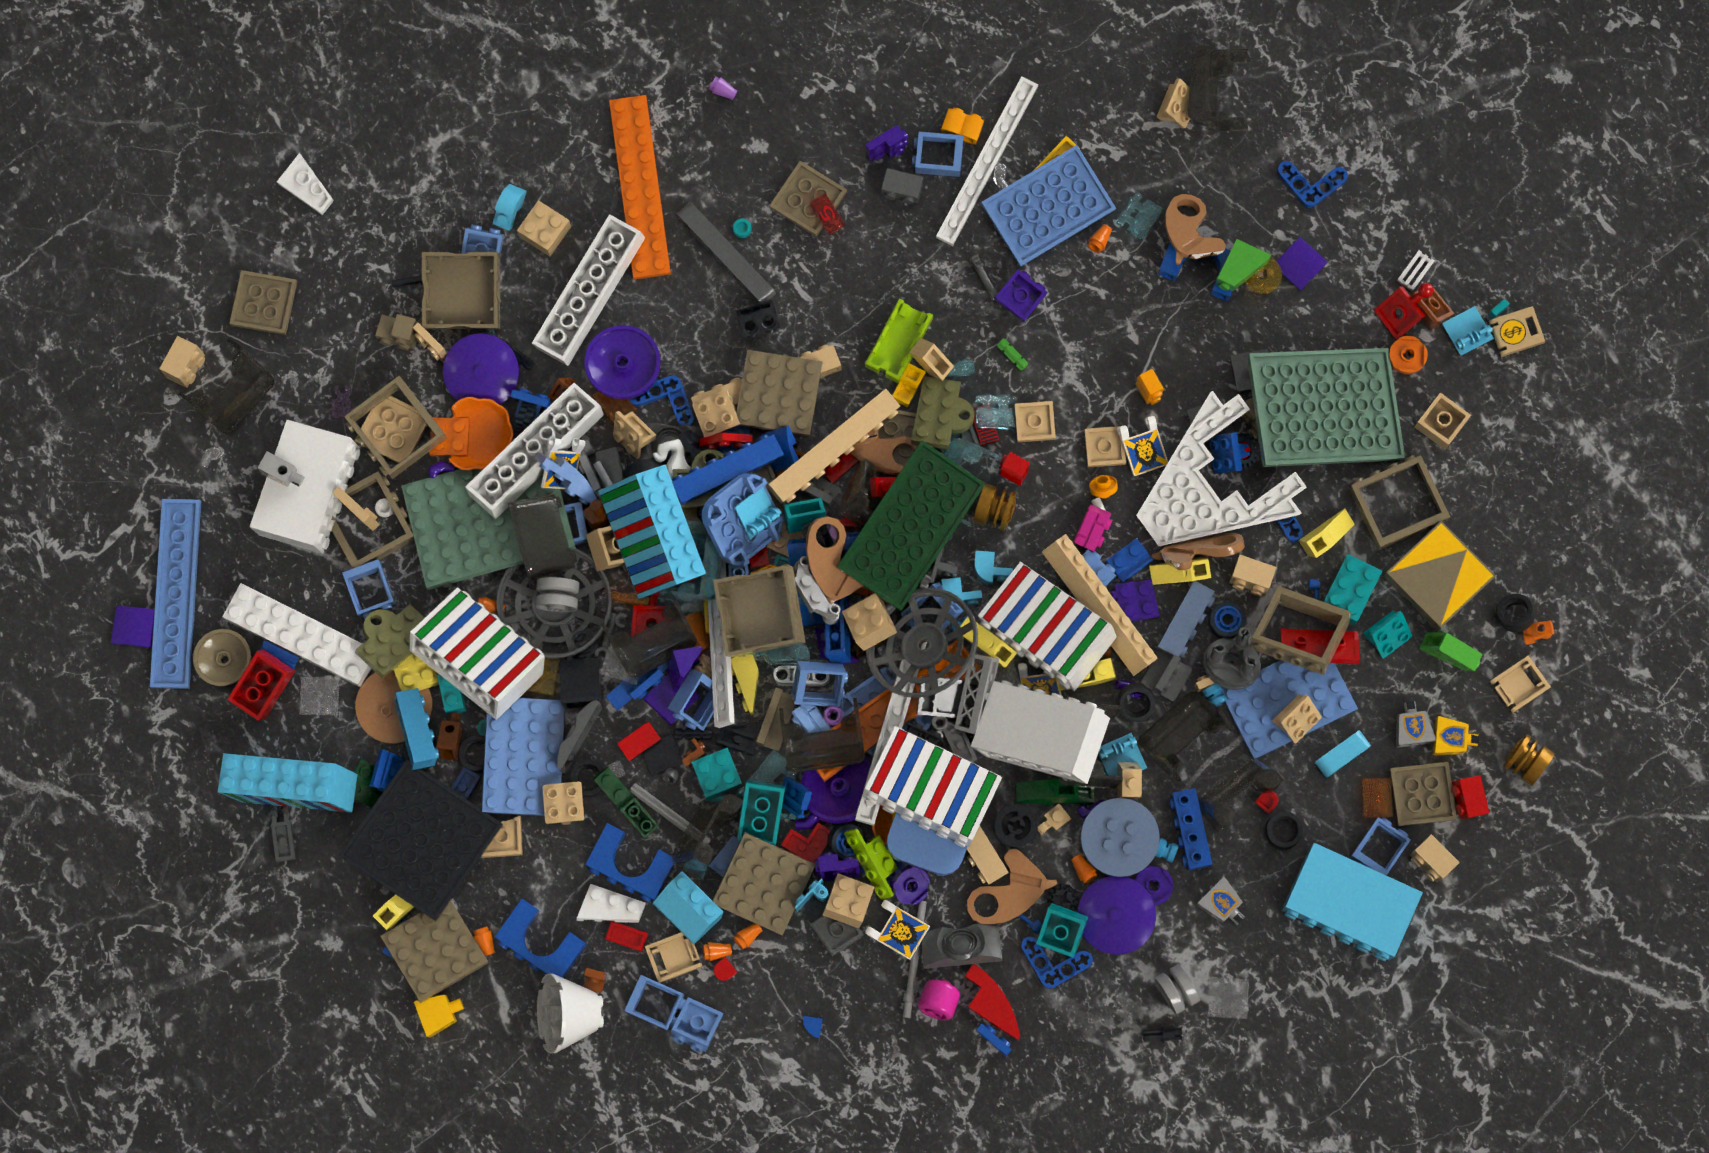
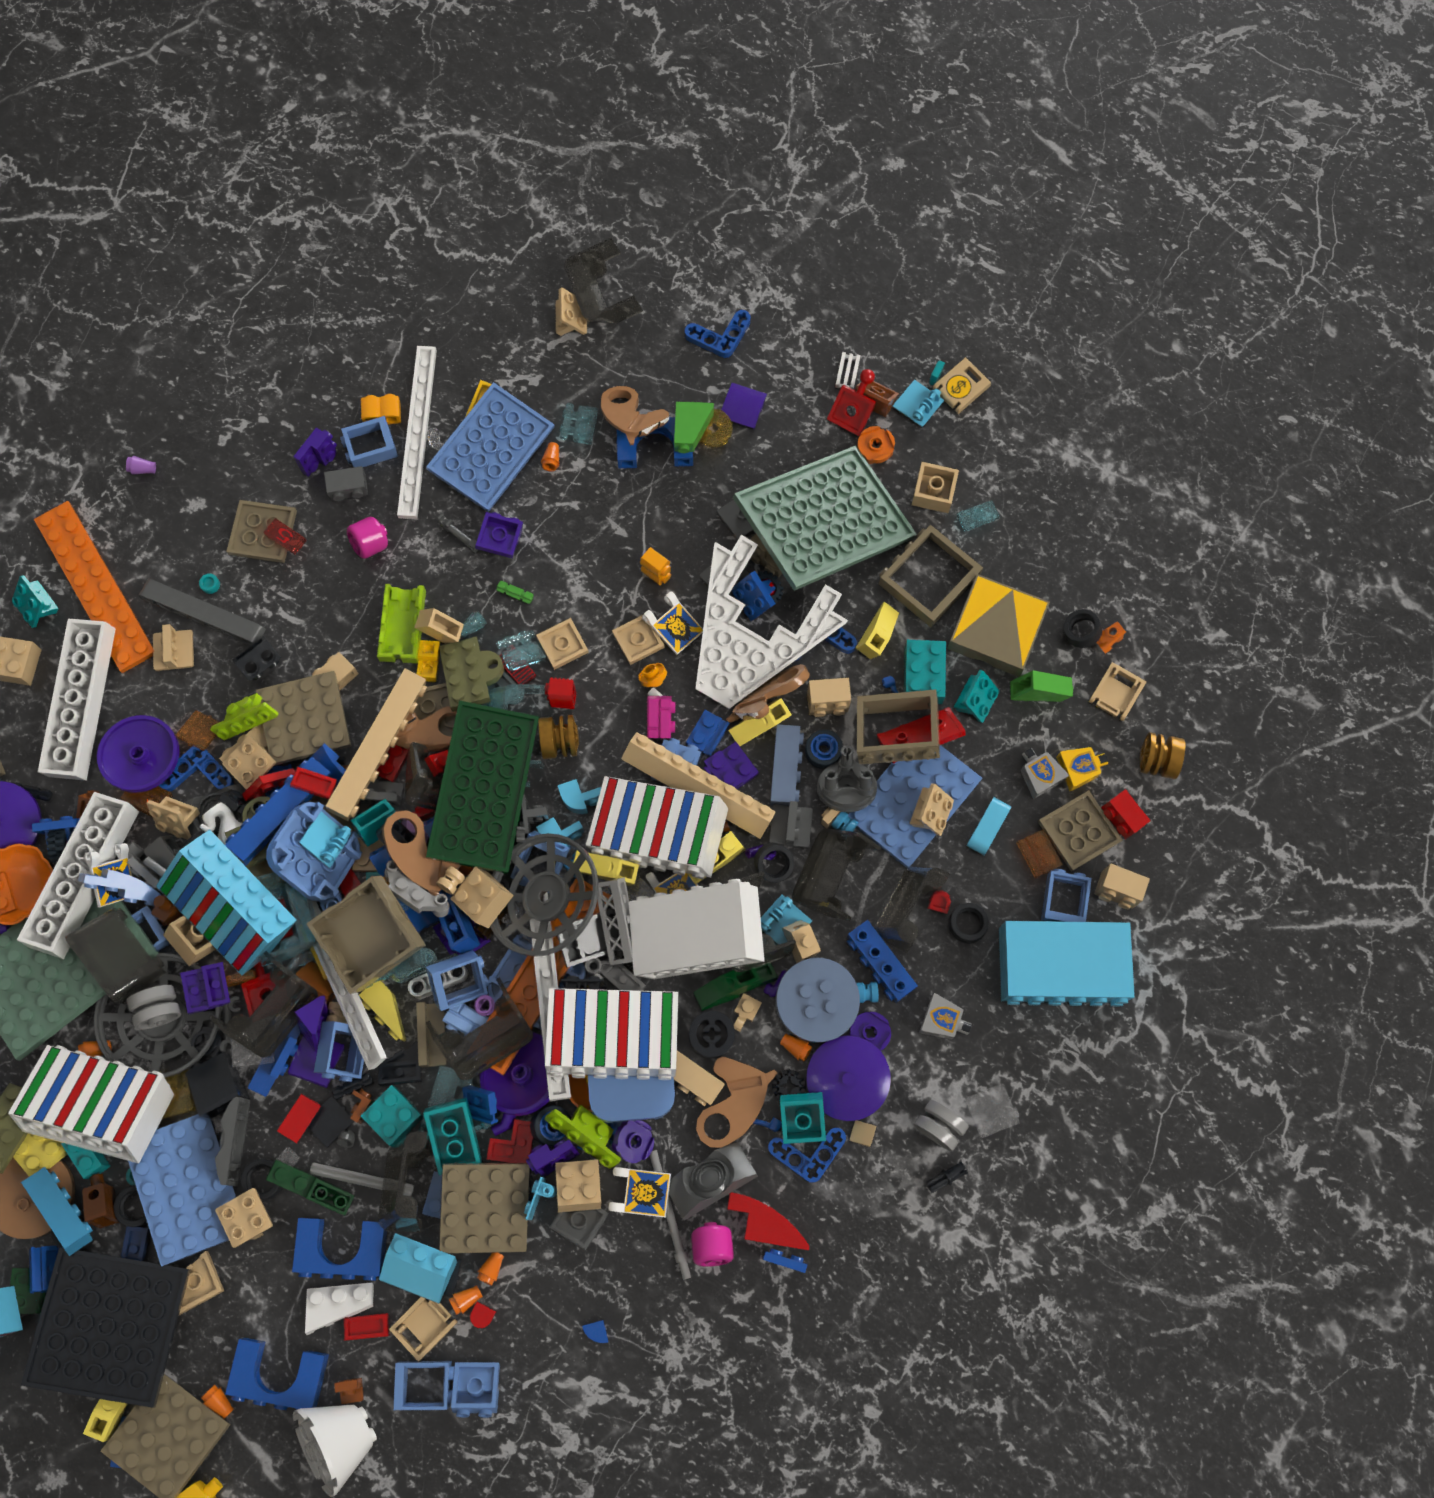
camera: 30 degrees left, 5 degrees down
(580, 179) = (32, 601): none -> teal bracket
(604, 596) = (205, 988): none -> dark purple slope
(682, 363) = (197, 730): none -> clear orange piece
(687, 277) = (172, 649): none -> tan bracket
(727, 369) = (244, 716): none -> lime bracket
(766, 459) = (313, 783): none -> red tile
(849, 596) = (450, 880): none -> tan wheel
(901, 246) = (367, 537): none -> dark pink head
(1107, 966) = (862, 1133): none -> tan slope
(1472, 464) = (978, 515): none -> clear light blue plate

